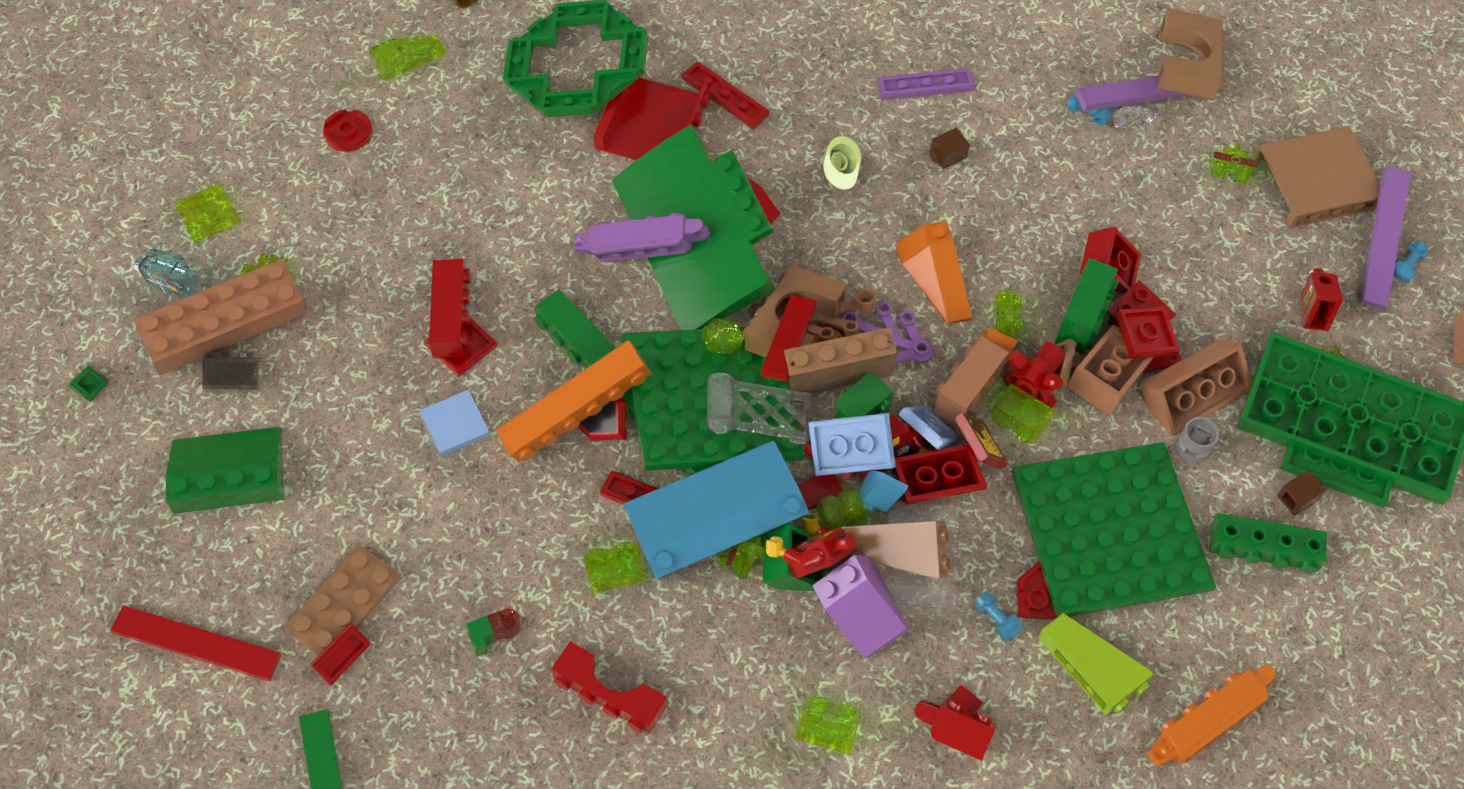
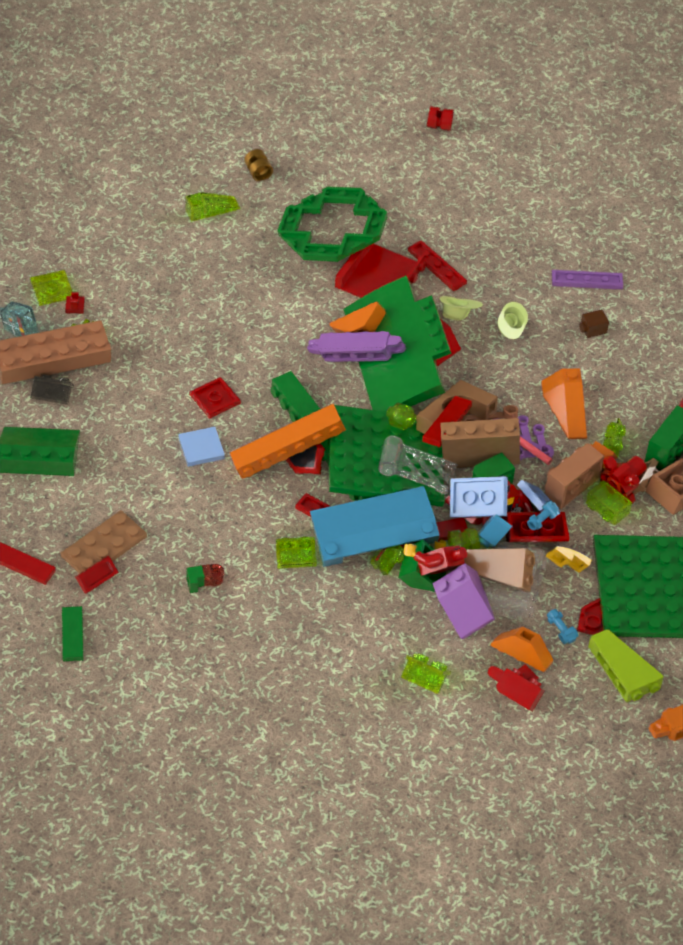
camera: 10 degrees right, 10 degrees down
(243, 233) = (75, 303): none -> red tile
(351, 136) = (160, 254): red tile -> none
(449, 309) = (211, 372): red brick -> none
(638, 706) = (295, 639): red arch -> none
(639, 199) = (359, 321): none -> orange slope
(766, 154) = (458, 308): none -> yellowish green piece
(909, 352) = (535, 451): none -> coral bar
(953, 449) = (550, 510): none -> dark azure bar
(955, 660) = (524, 647): none -> orange slope
(981, 441) = (574, 513): tile -> none
(982, 511) = (574, 559): none -> yellow slope

